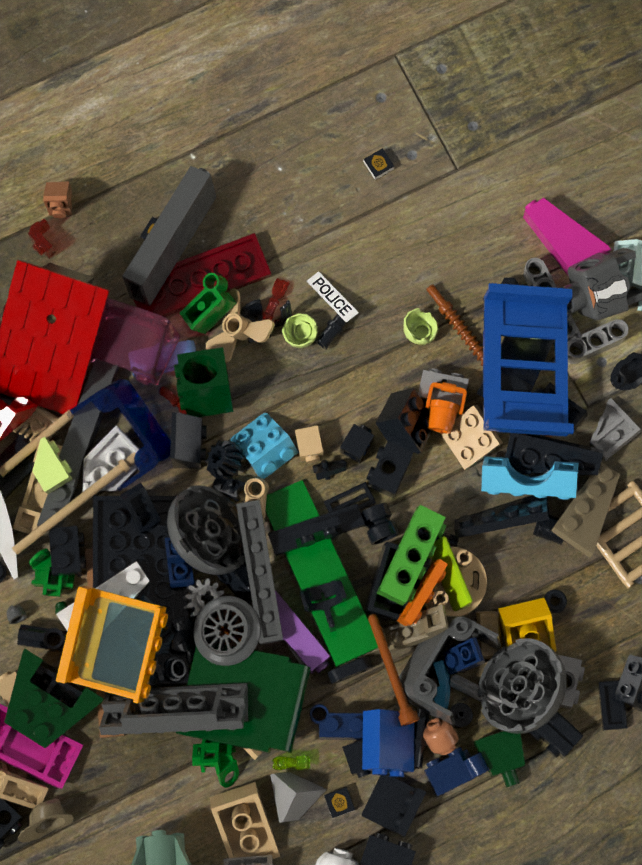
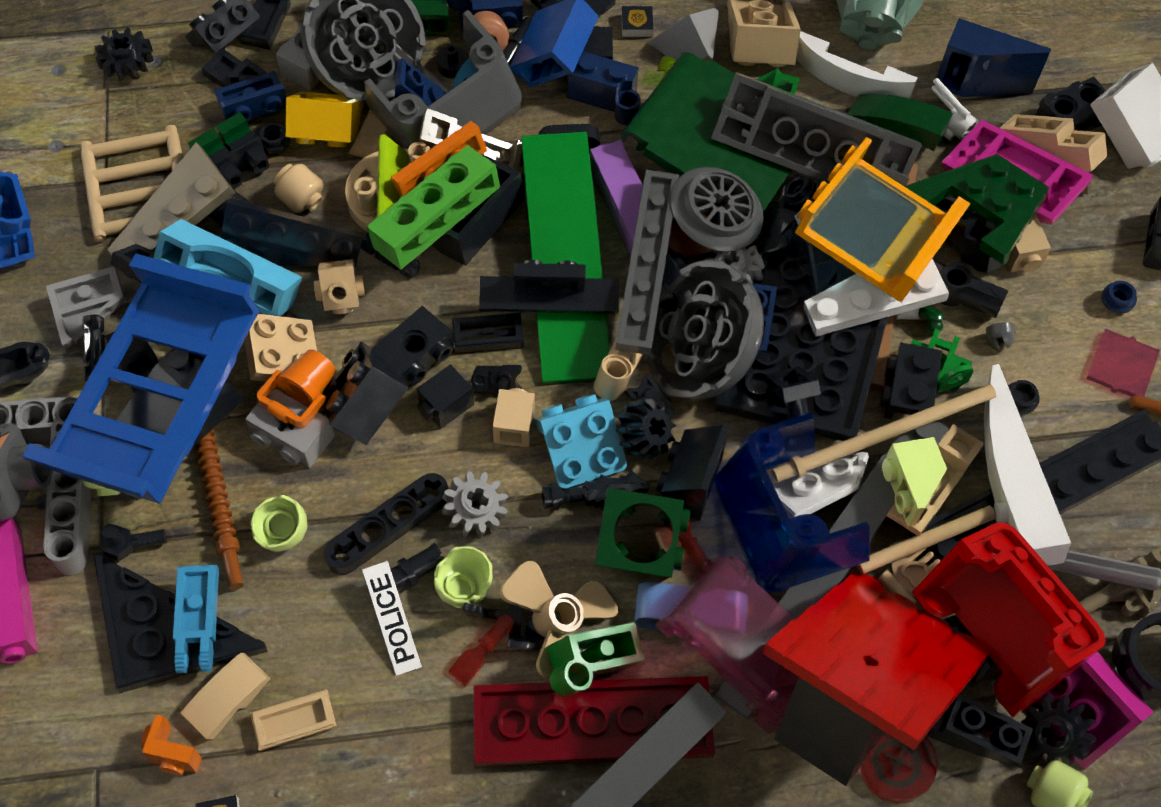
camera: 165 degrees left, 15 degrees down
(45, 819) = (1009, 95): dark tan piece -> none
(72, 835) = (990, 62): none -> dark blue slope
(78, 786) = (962, 120): none -> white plant
(122, 771) = (903, 116): none -> dark green slope
(136, 802) = (848, 75): none -> white slope
(241, 415) = (592, 491): none -> black piece
(314, 594) = (561, 215): black helmet -> none
(318, 383) = (488, 503): none -> light grey gear
(362, 355) = (383, 518): none -> black beam
(363, 226) = (293, 720): none -> tan tile
(379, 524) = (459, 284): black wheel -> none
(405, 225) = (224, 694): none -> tan slope
(407, 714) = (518, 49): dark orange piece -> none
(417, 183) = (170, 756): none -> orange bracket
(441, 258) = (195, 614): none -> dark azure hinge
(455, 494) = (339, 275): none -> tan brick
(460, 248) = (141, 630): none -> black tile
(517, 562) = (298, 188): none -> tan head
(579, 576) = (233, 149): none -> black hips
(585, 625) = (252, 97): none -> dark blue bracket
(588, 400) = (92, 342): none -> black axle
(611, 648) = (227, 69): none -> black slope

